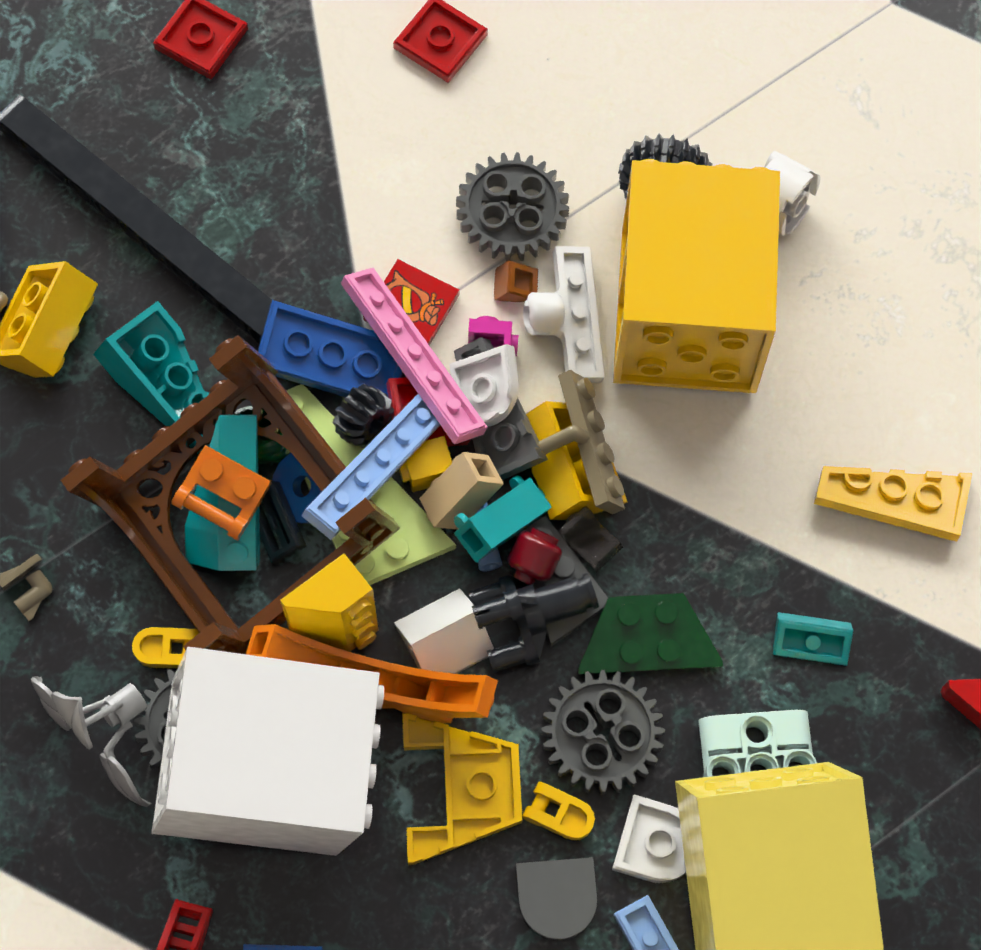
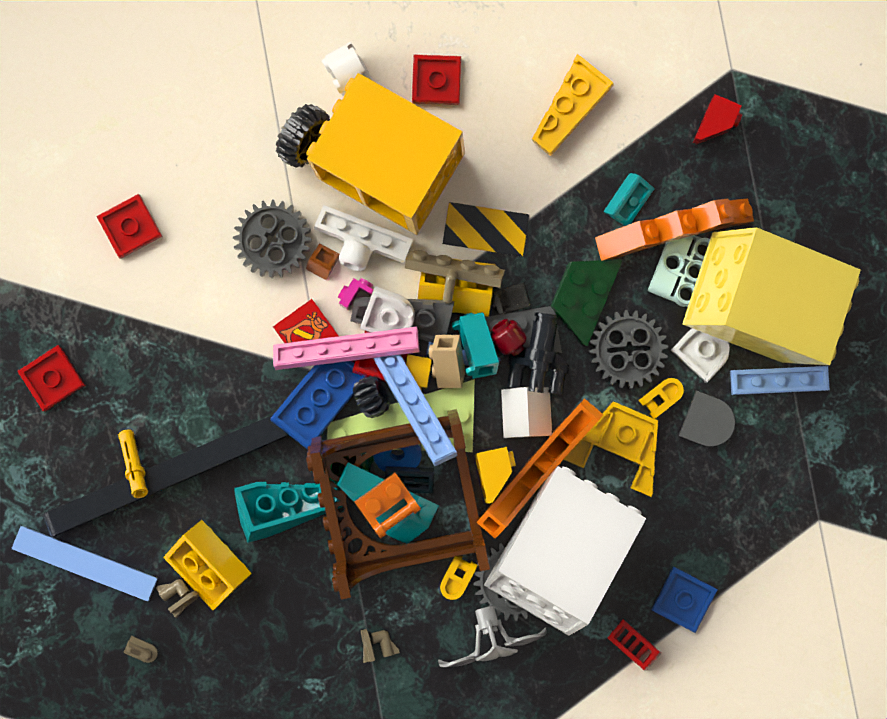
camera: 65 degrees left, 15 degrees up
(123, 170) = (135, 472): none -> yellow pin
(669, 469) = (485, 229): none -> sticker
(811, 705) = (674, 226): none -> orange arch
(833, 313) = (436, 79): none -> red tile

